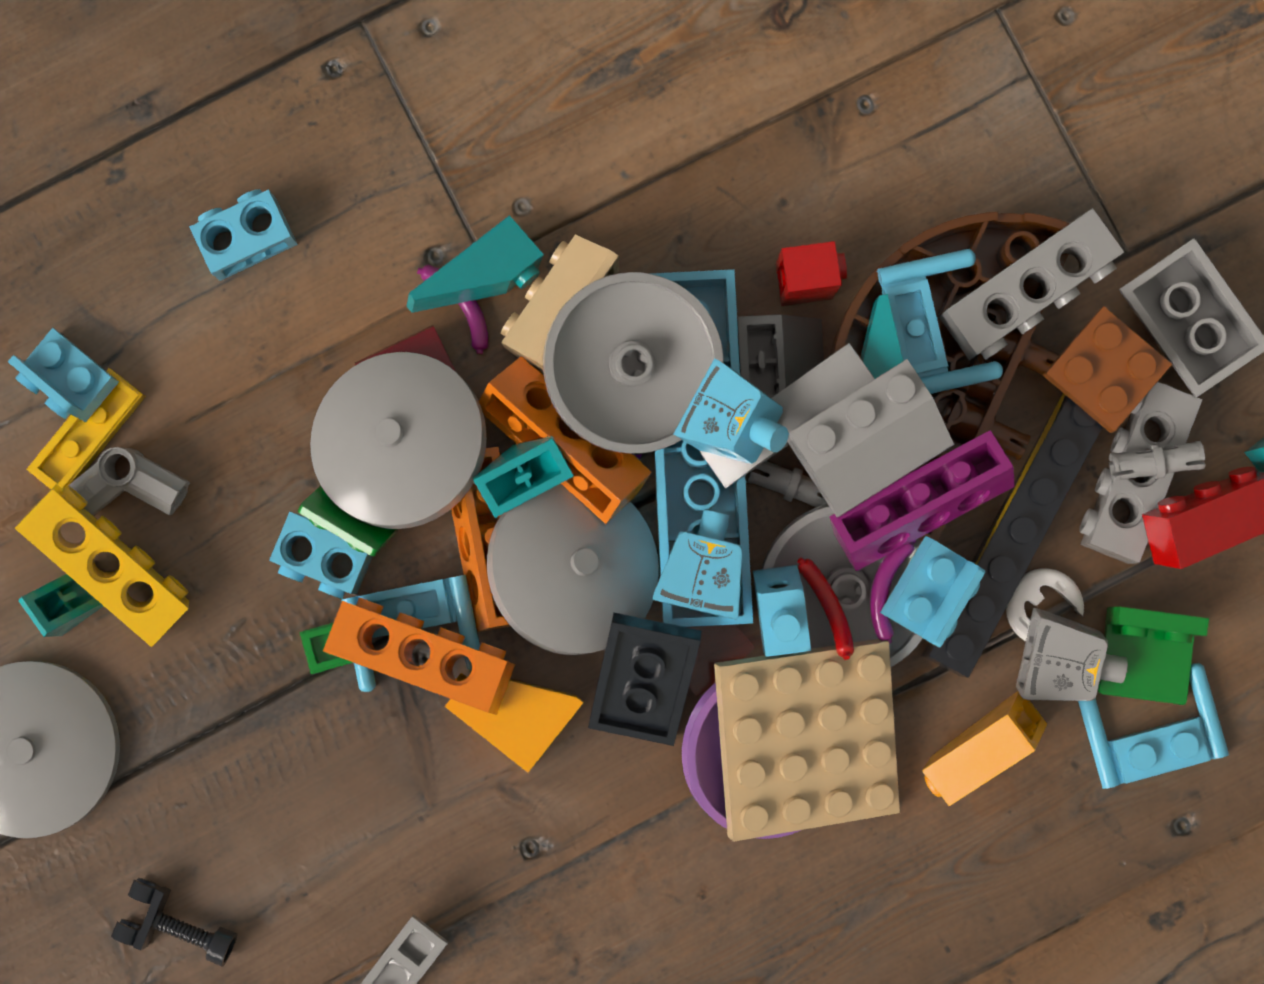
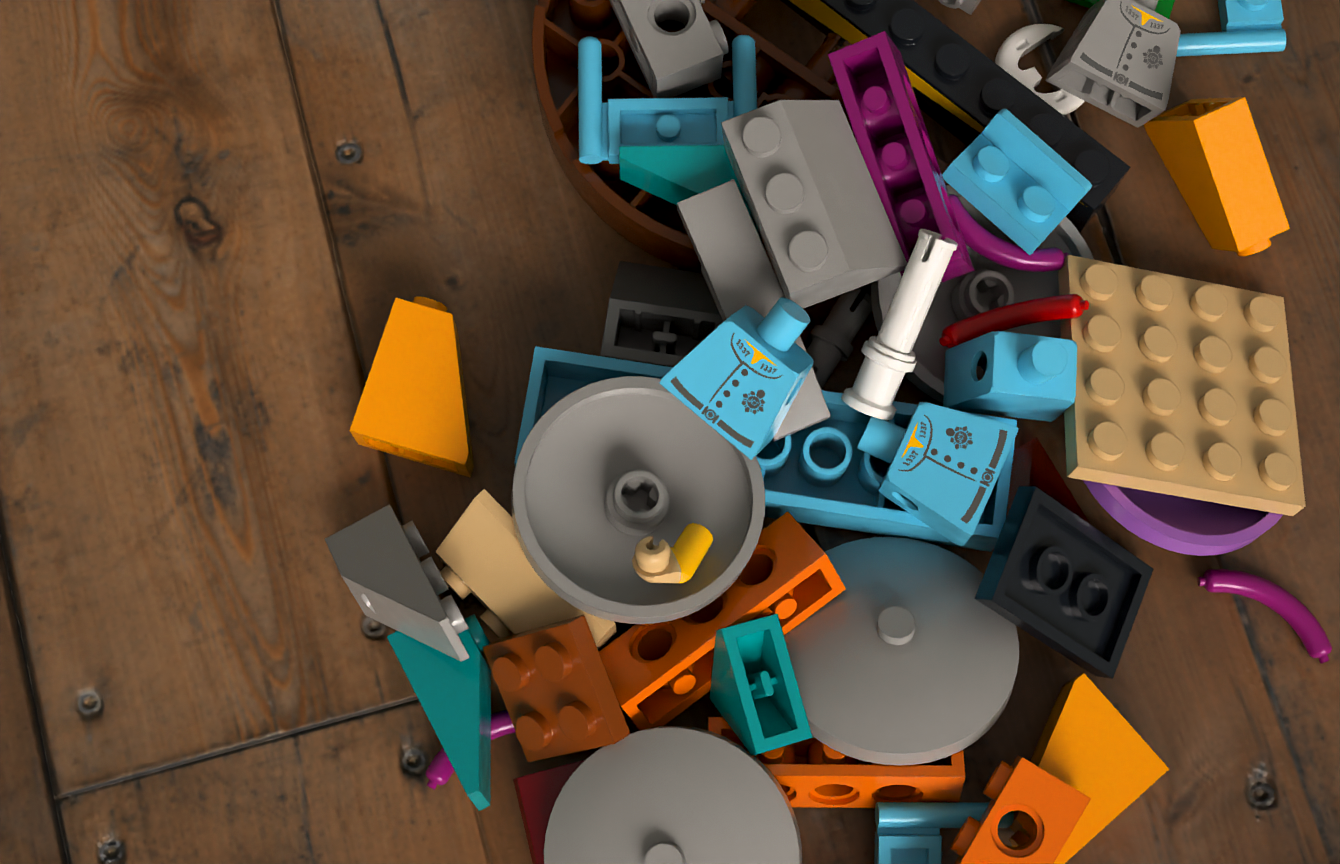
camera: 80 degrees left, 10 degrees down
(494, 337) = (556, 689): none -> dark orange plate
(554, 204) = (392, 584): none -> light grey slope
(588, 395) = (673, 563): none -> arm
(671, 838) = (1275, 598): none -> magenta piece
(694, 196) = (417, 390): none -> light orange slope
(775, 519) = (890, 352): none -> white pin
(810, 273) = (559, 255): red brick -> none

